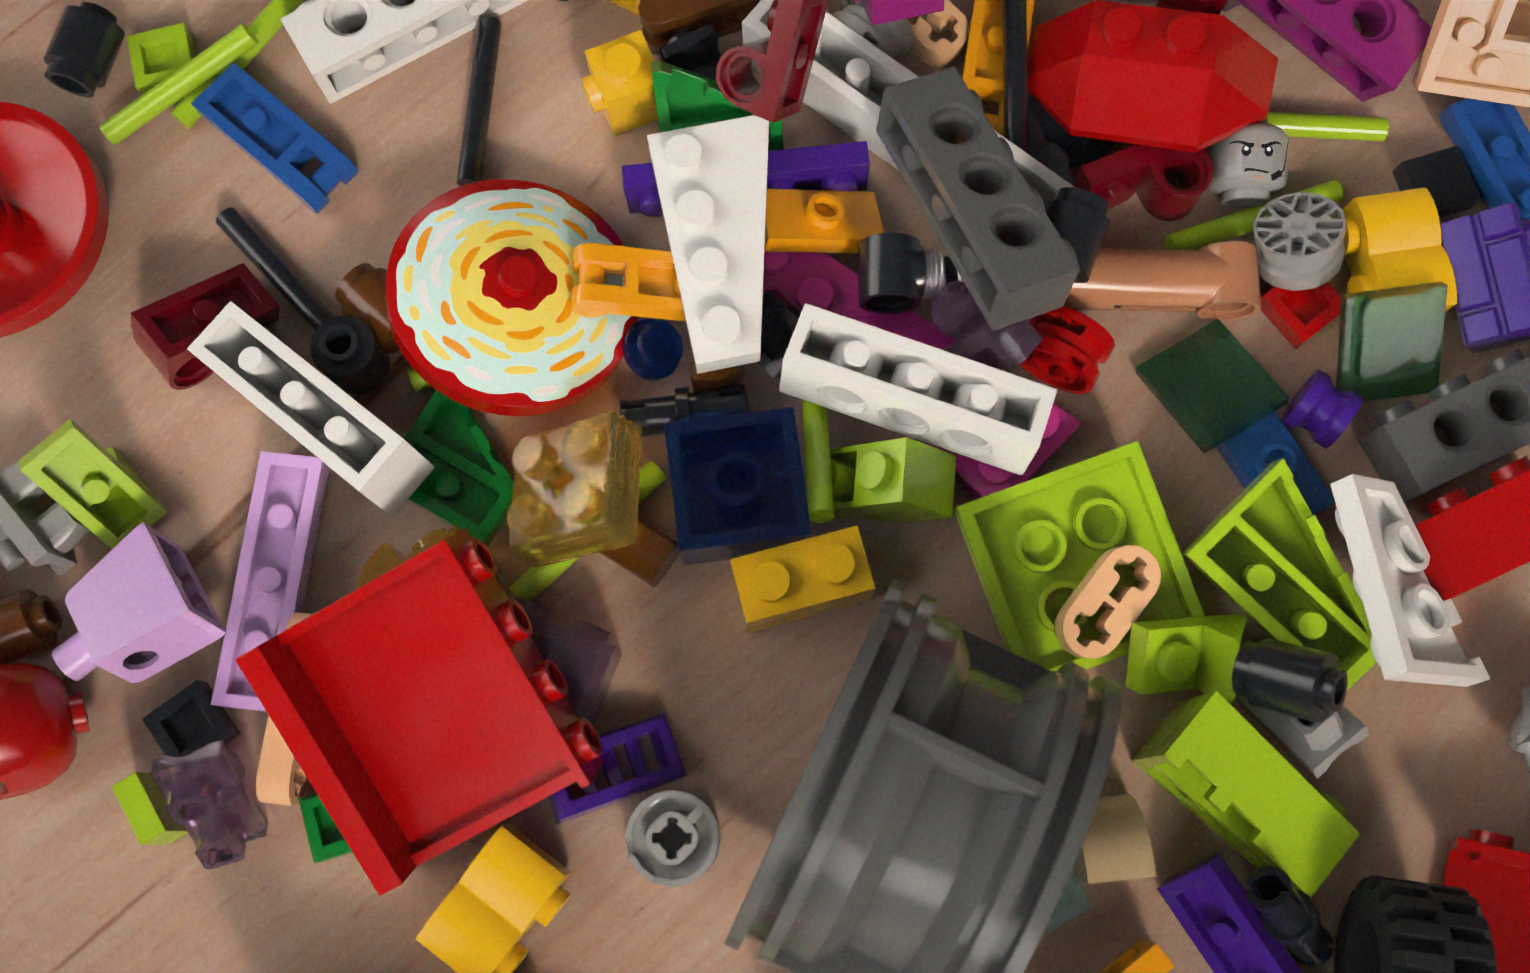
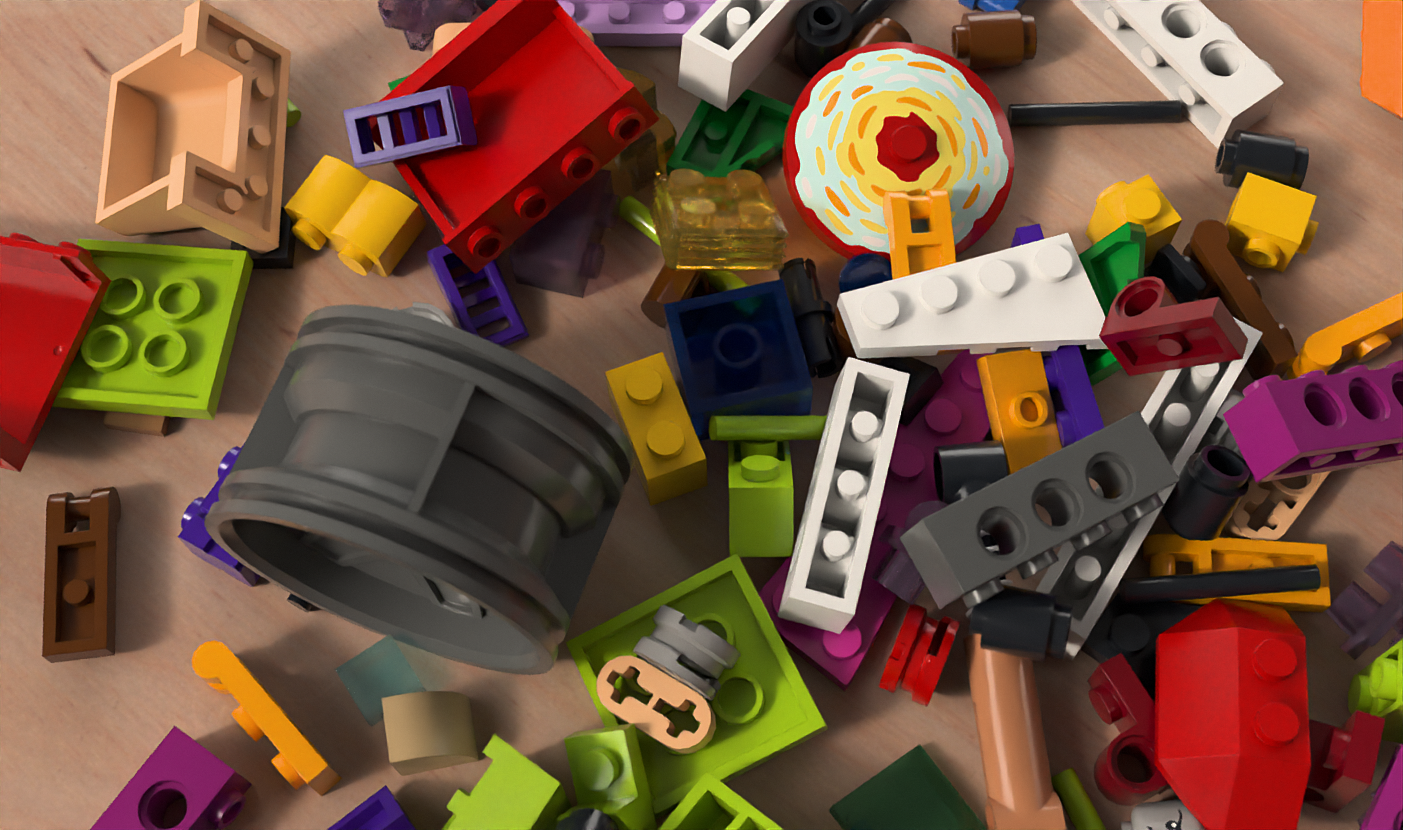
camera: 85 degrees right, 10 degrees down
(378, 181) = (994, 39): none -> reddish brown brick
(383, 799) = (457, 119): none -> dark purple slope
(933, 45) = (1207, 493): none -> black brick
(1074, 560) = (693, 645): none -> light grey wheel

